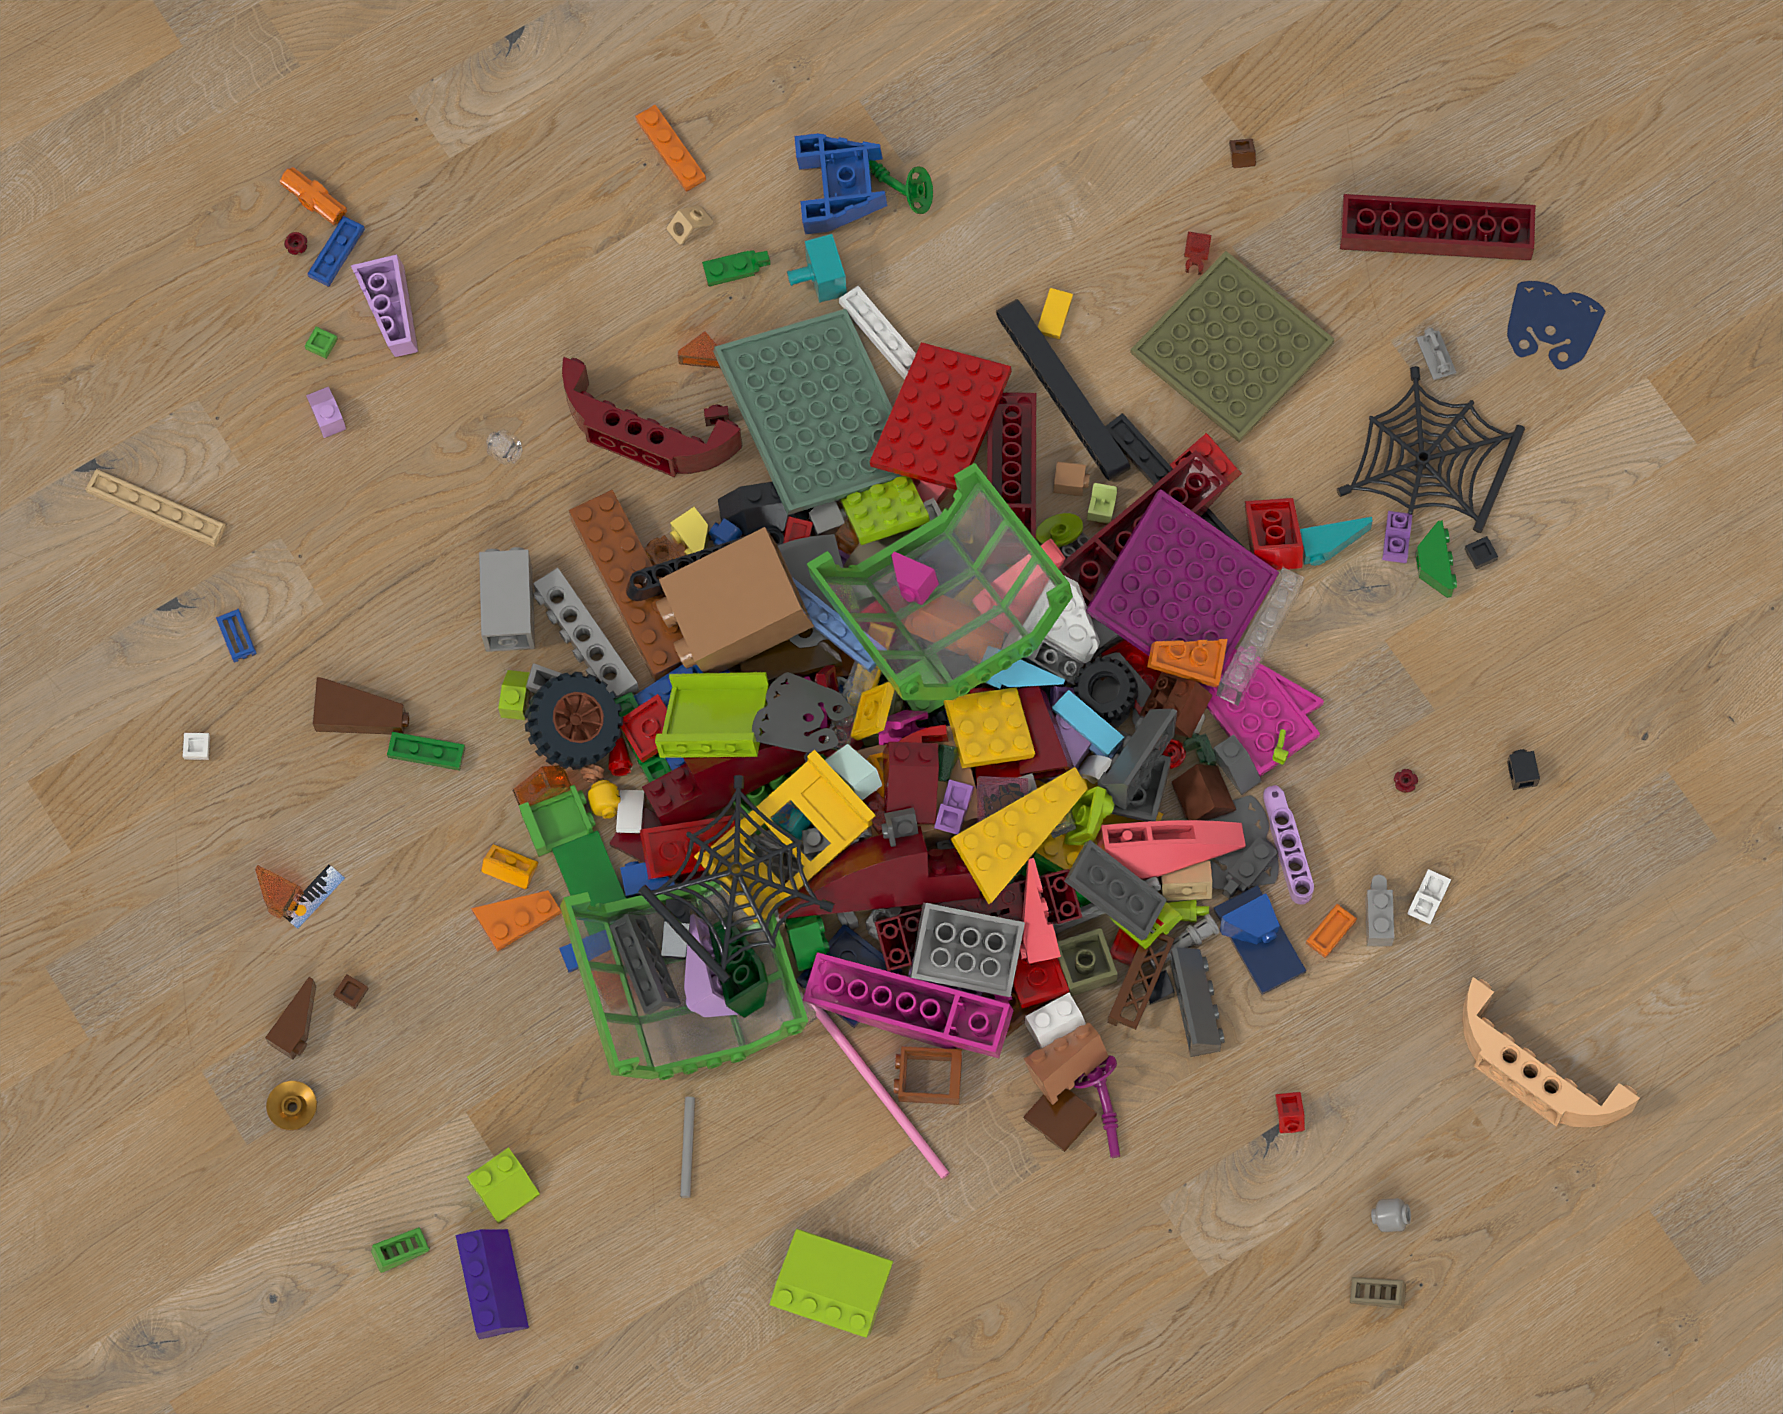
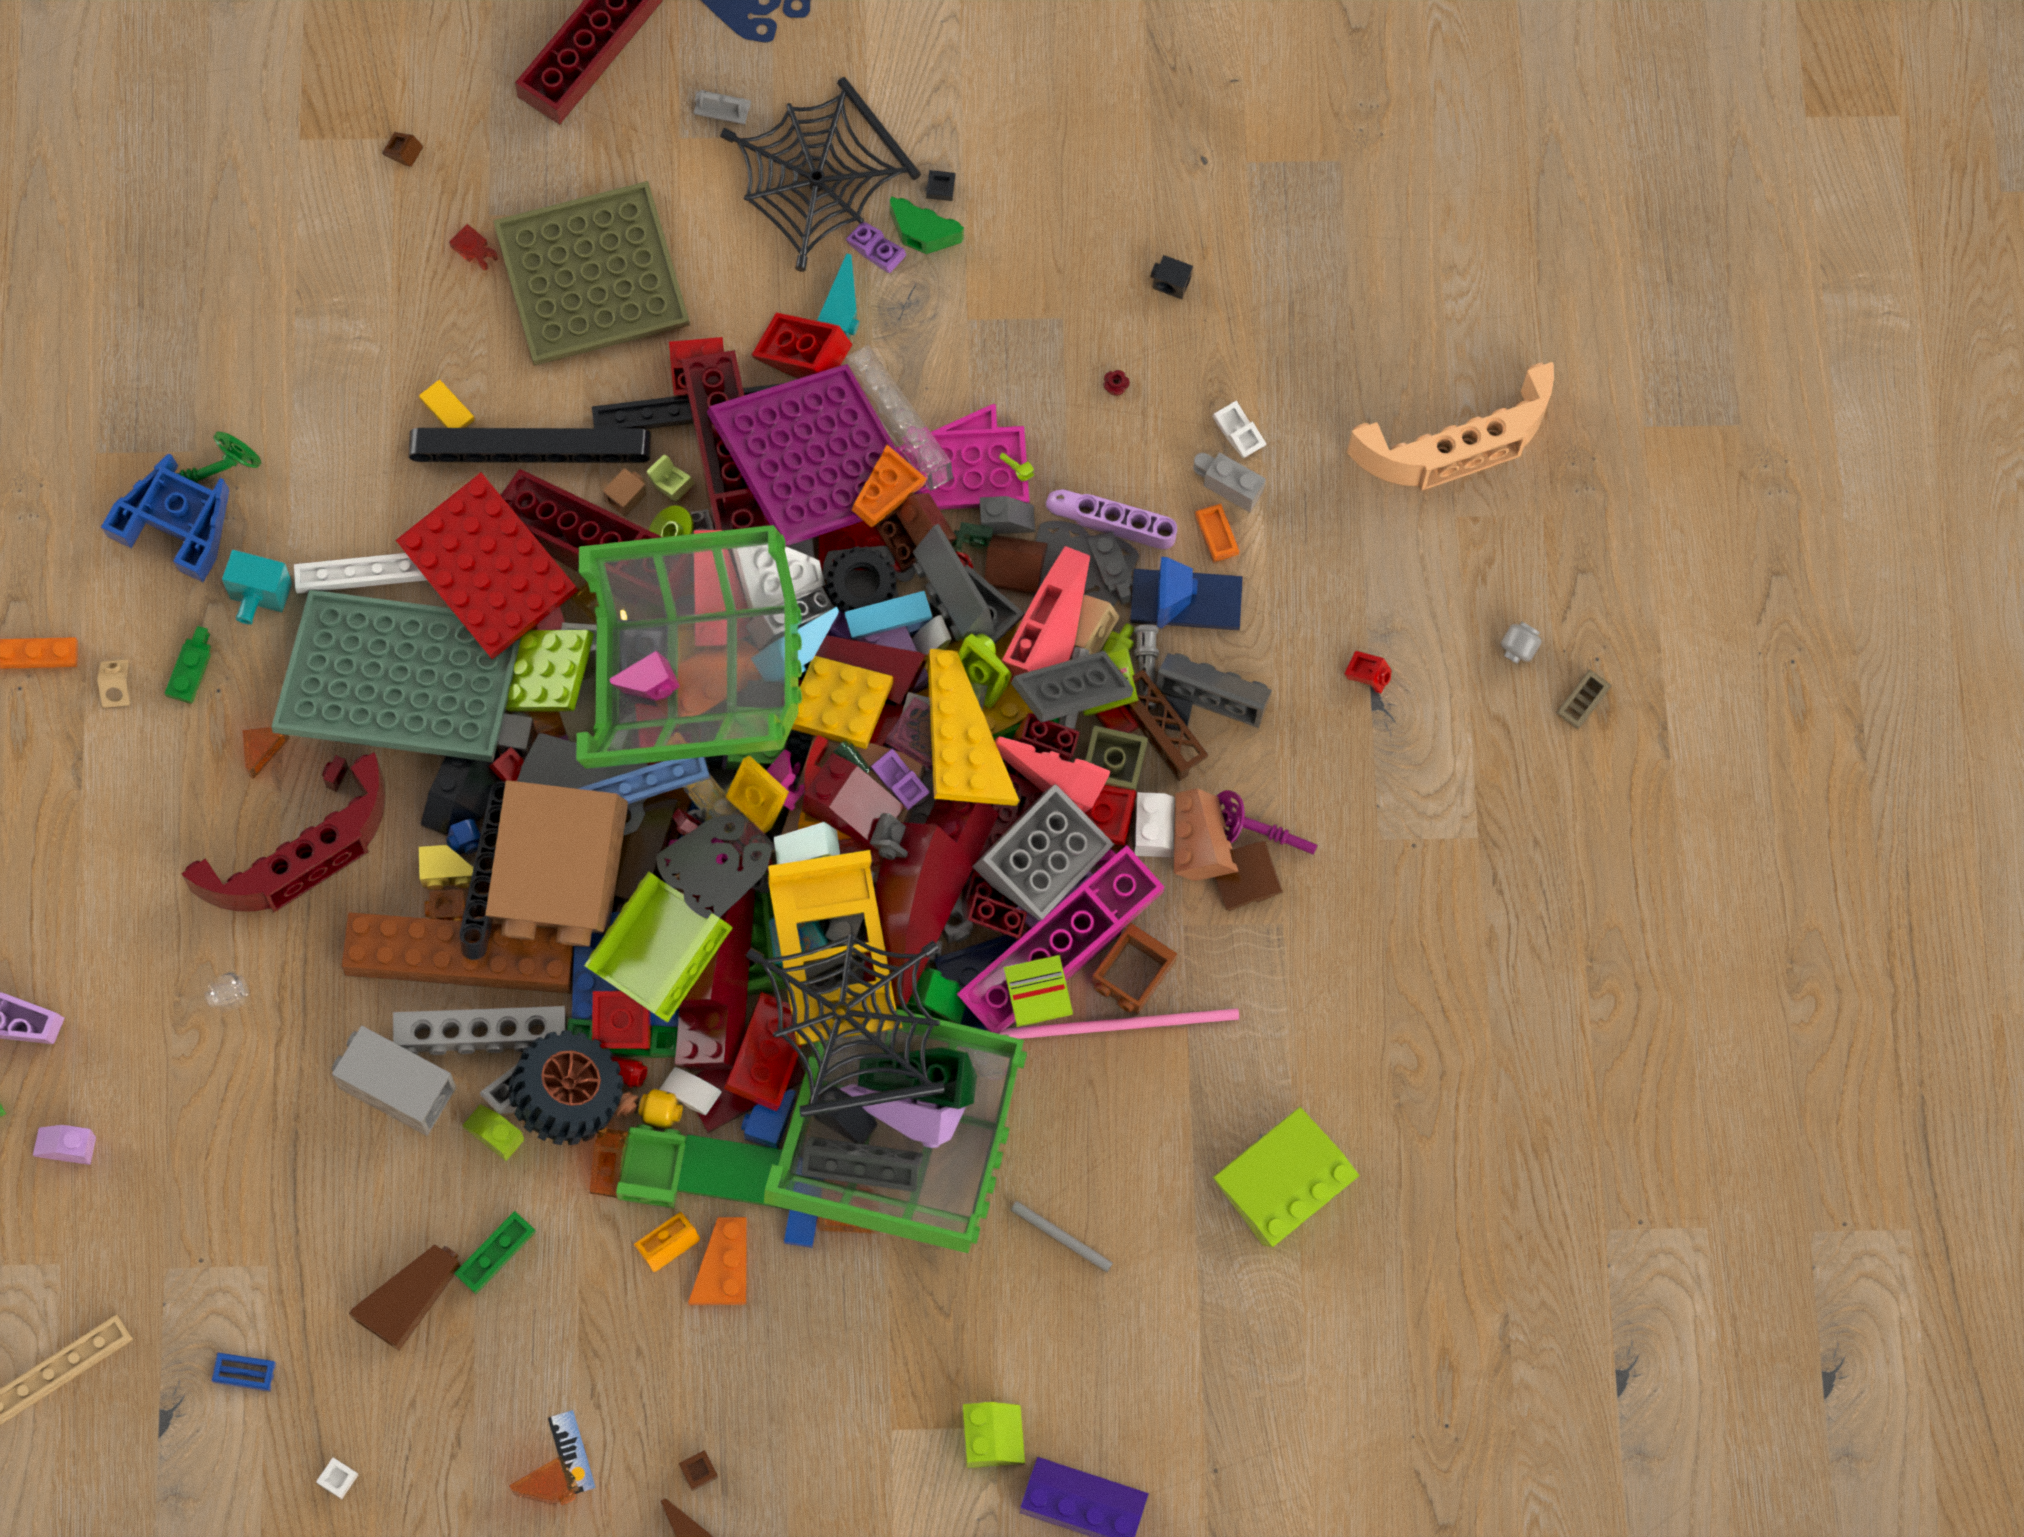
camera: 65 degrees left, 0 degrees up
(854, 1008) = (1038, 990): none -> lime slope

